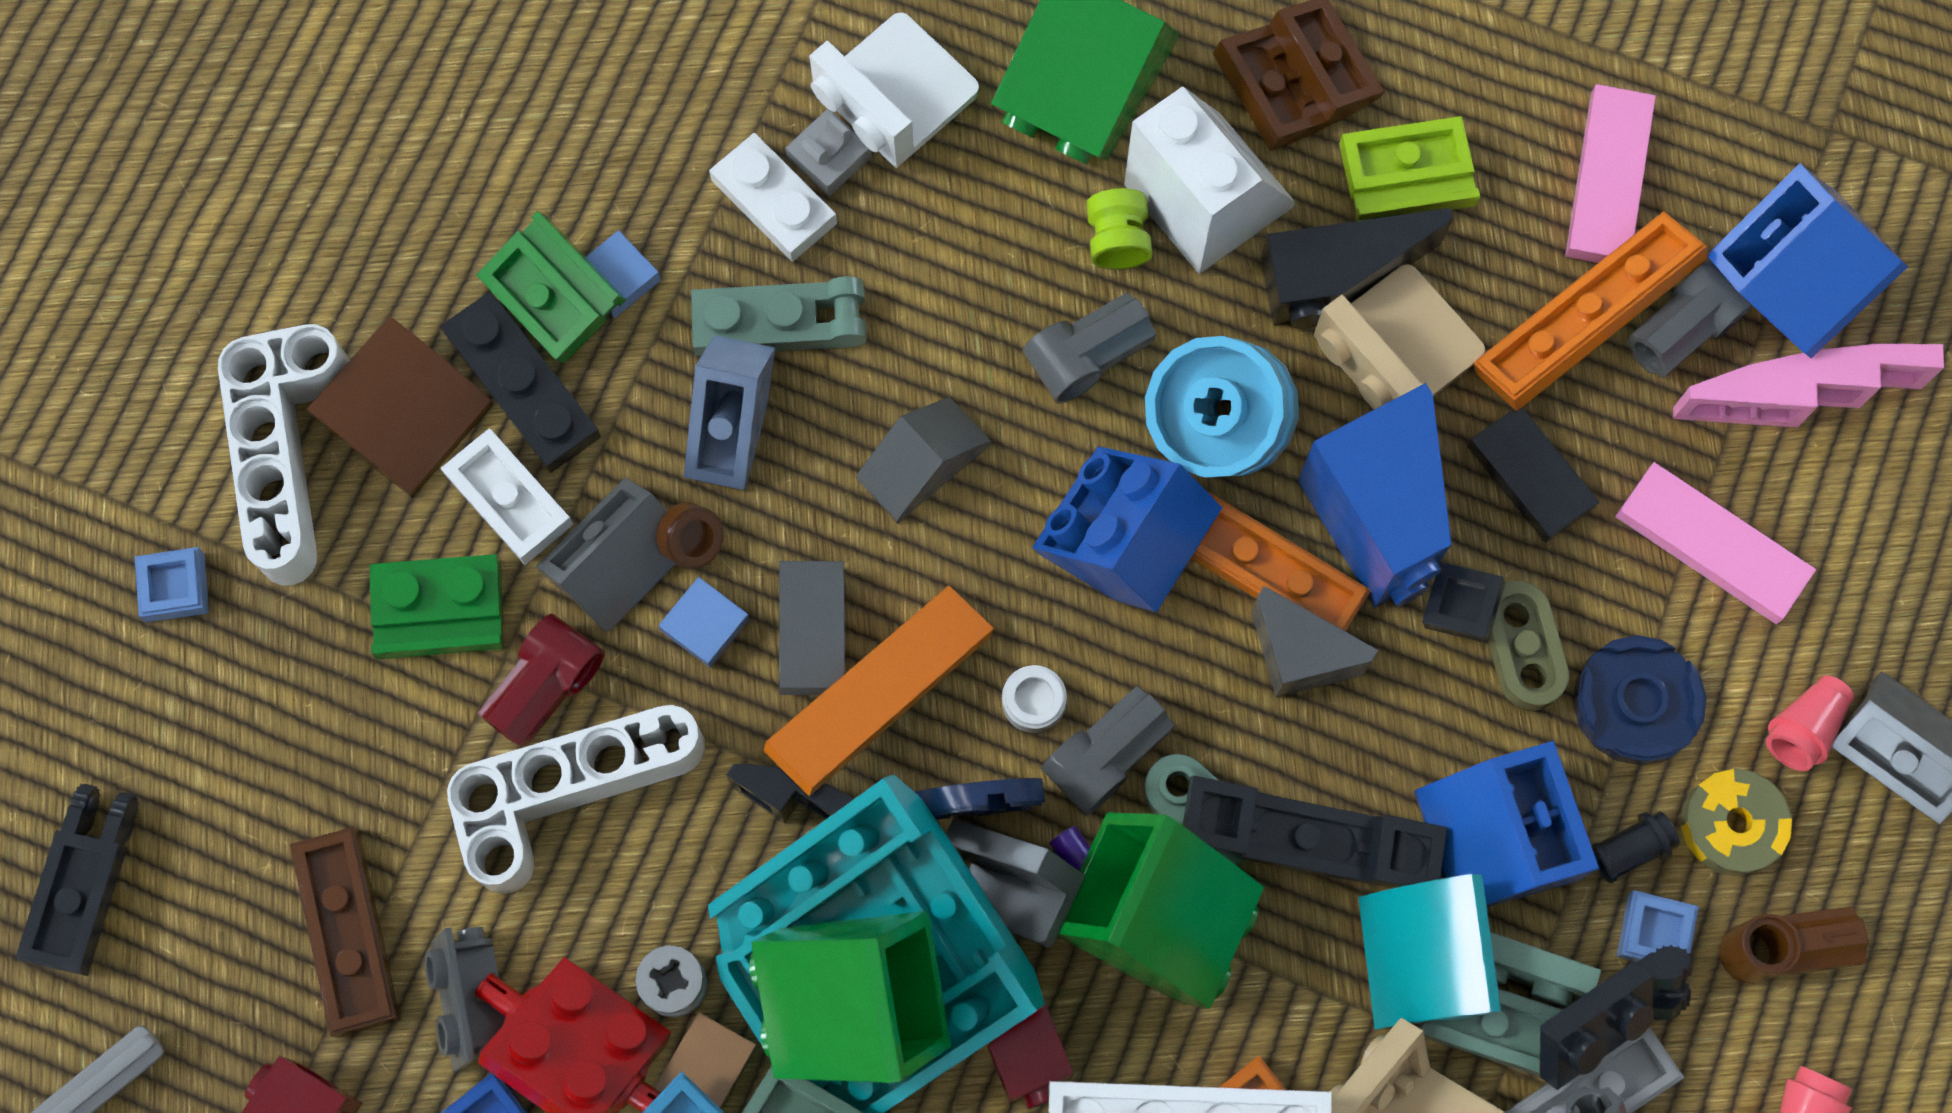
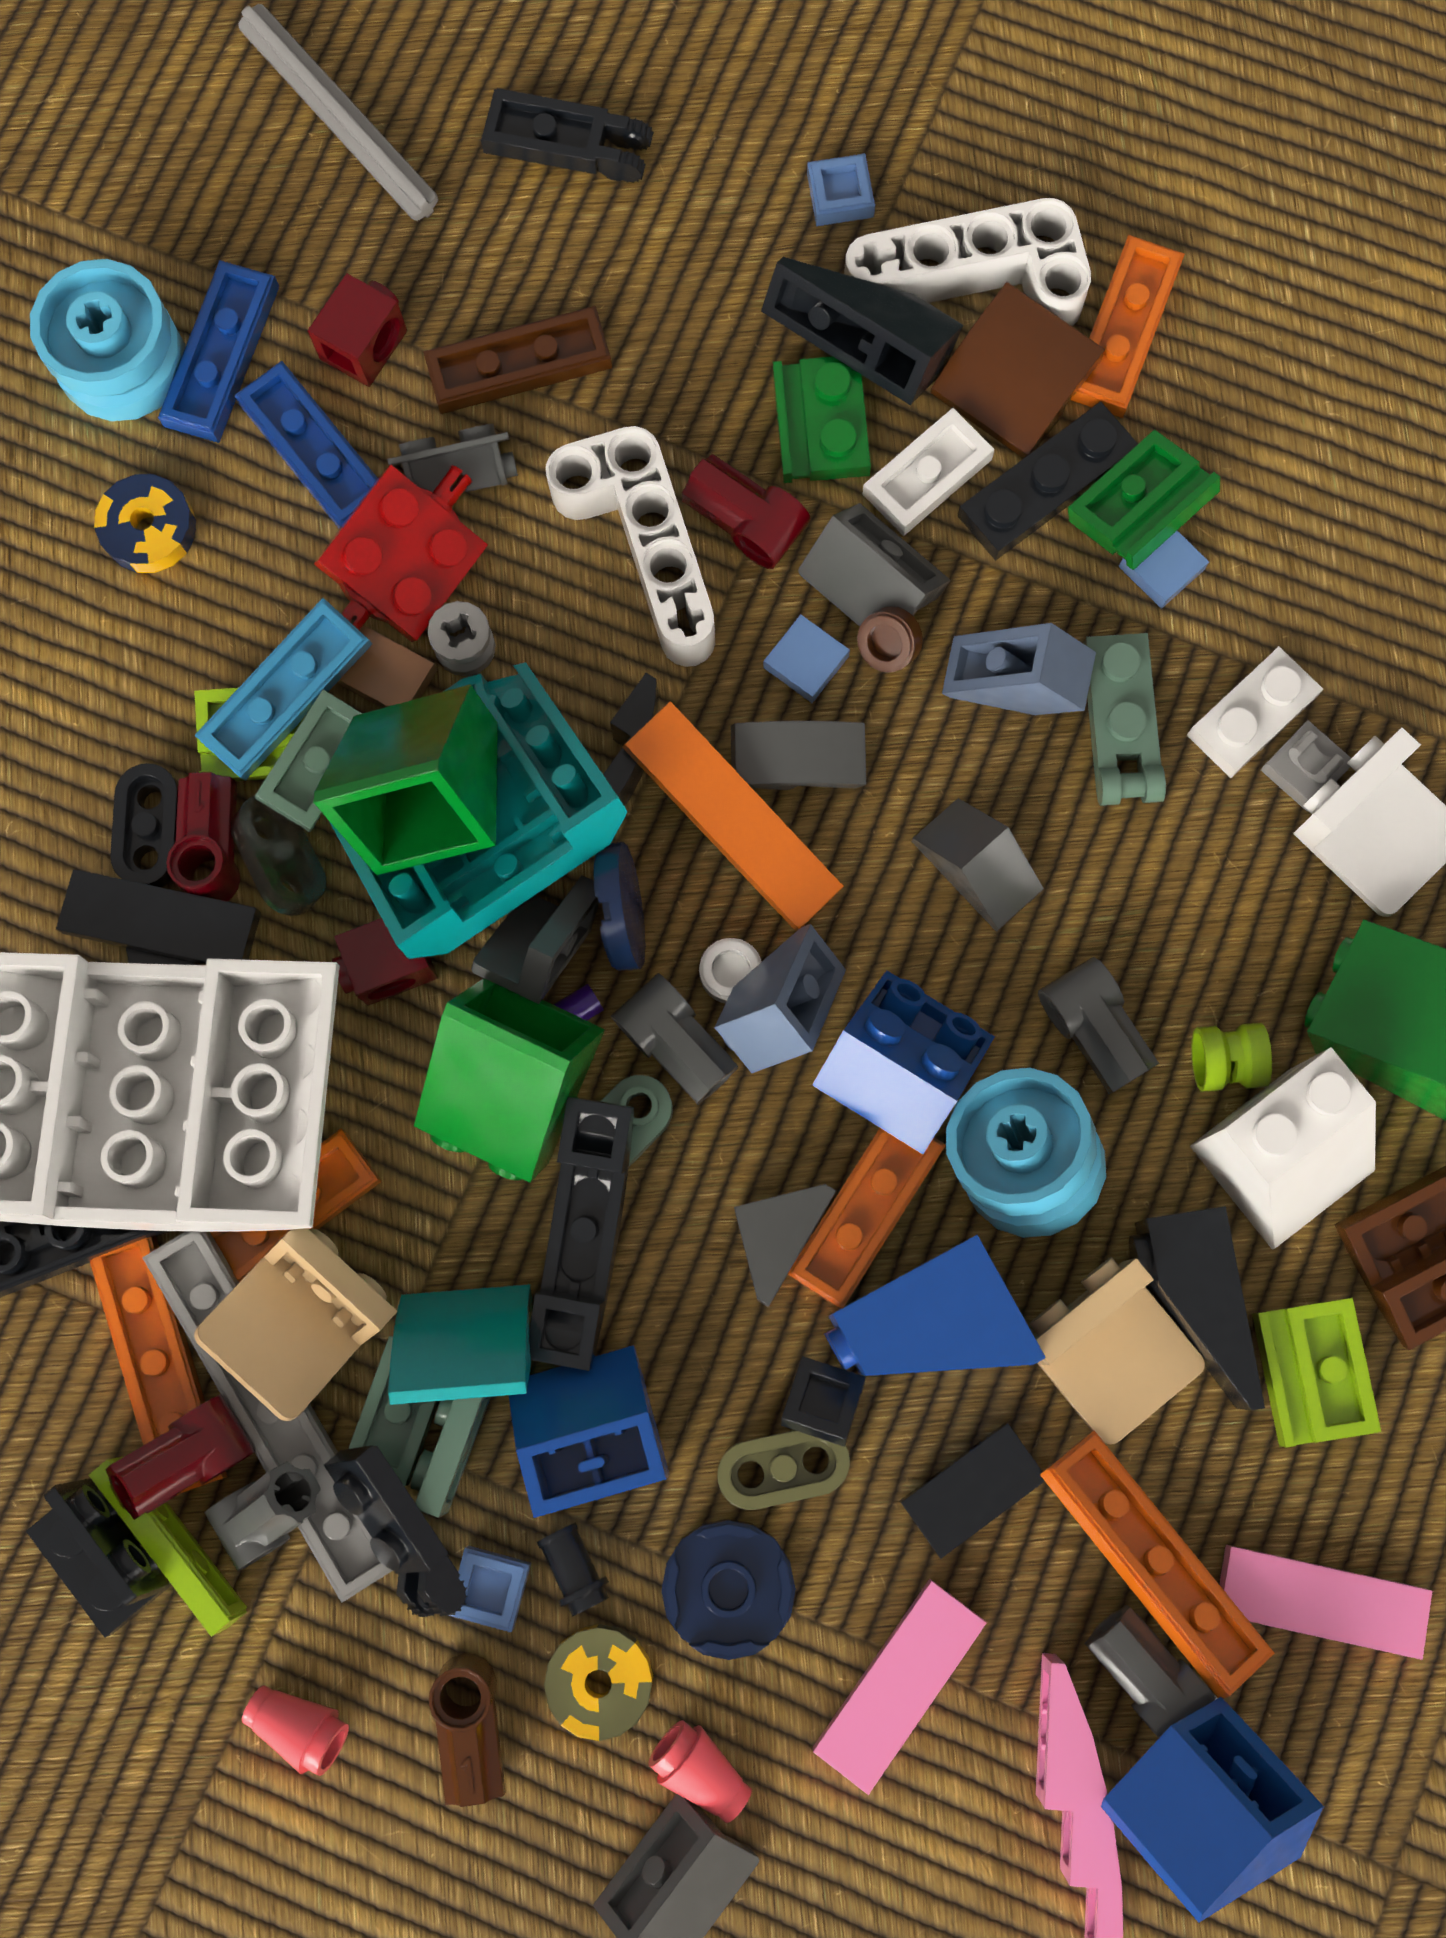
camera: 95 degrees right, 5 degrees up
(344, 552) = (864, 325): none -> black slope
(347, 296) = (1129, 322): none -> orange tile
(1074, 641) = (782, 1002): none -> sand blue slope

